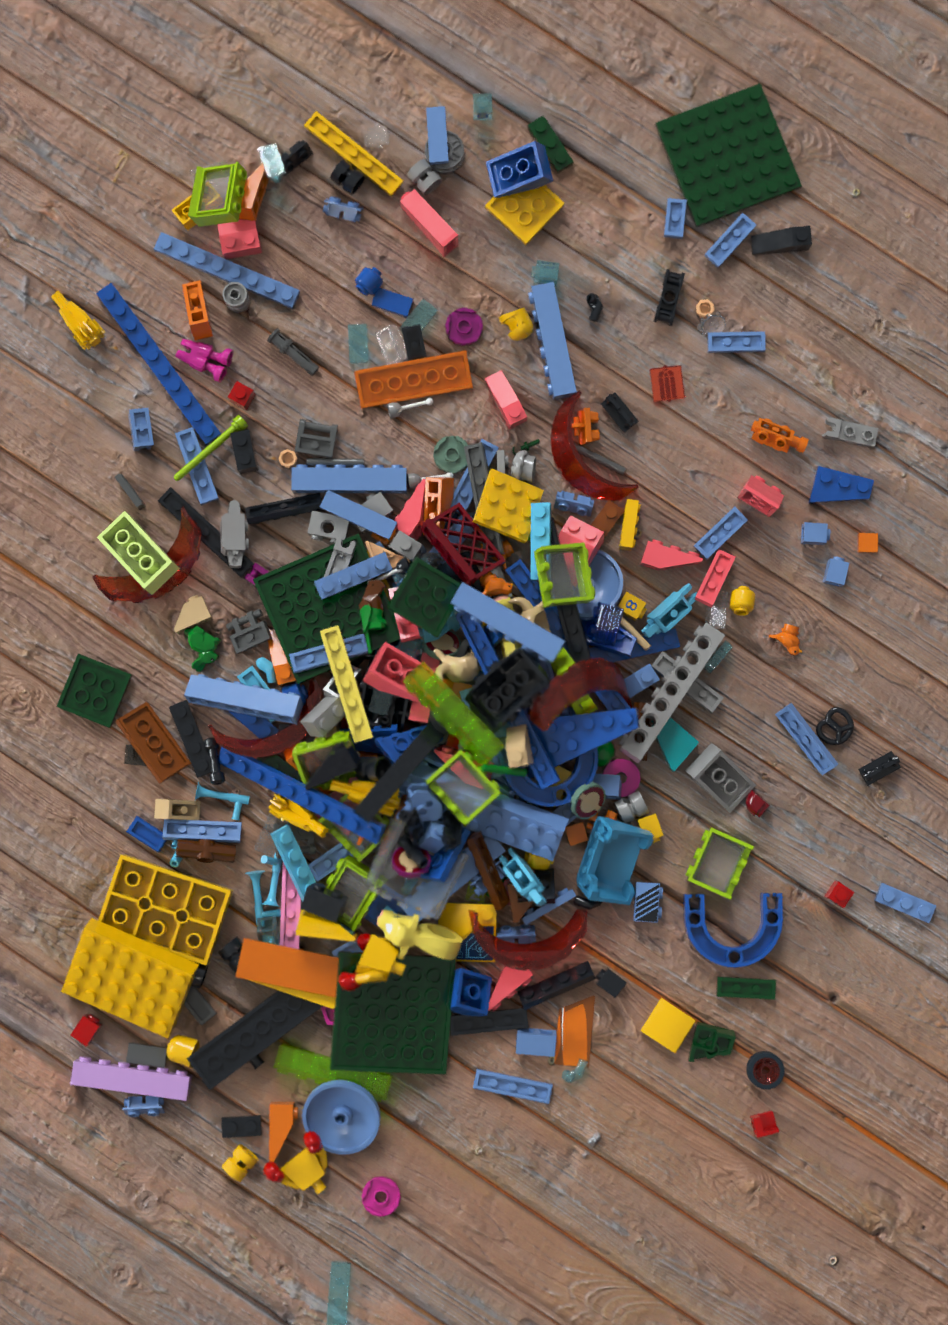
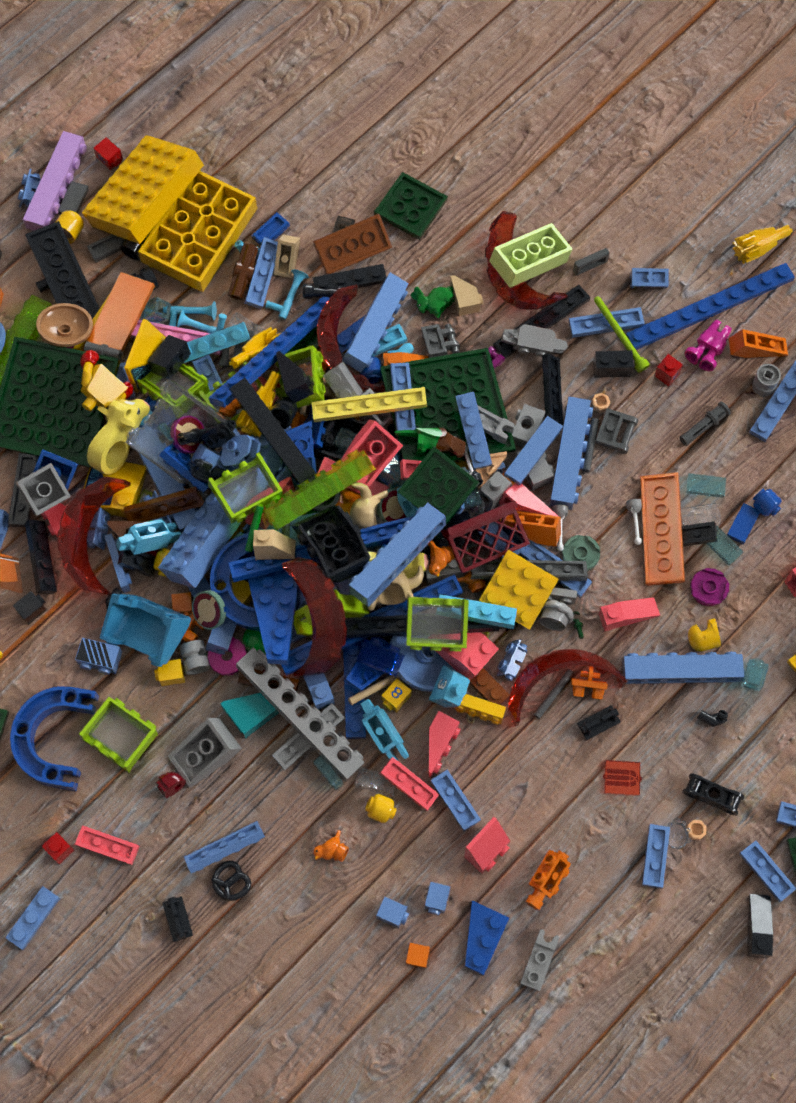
camera: 100 degrees right, 15 degrees down
(297, 1024) = (64, 325): none -> medium nougat dish
(331, 972) = (104, 350): none -> dark grey pin
(495, 995) = (43, 489): none -> light grey brick
(618, 553) = (449, 688): none -> medium azure torso
(826, 849) = (107, 845): none -> coral plate

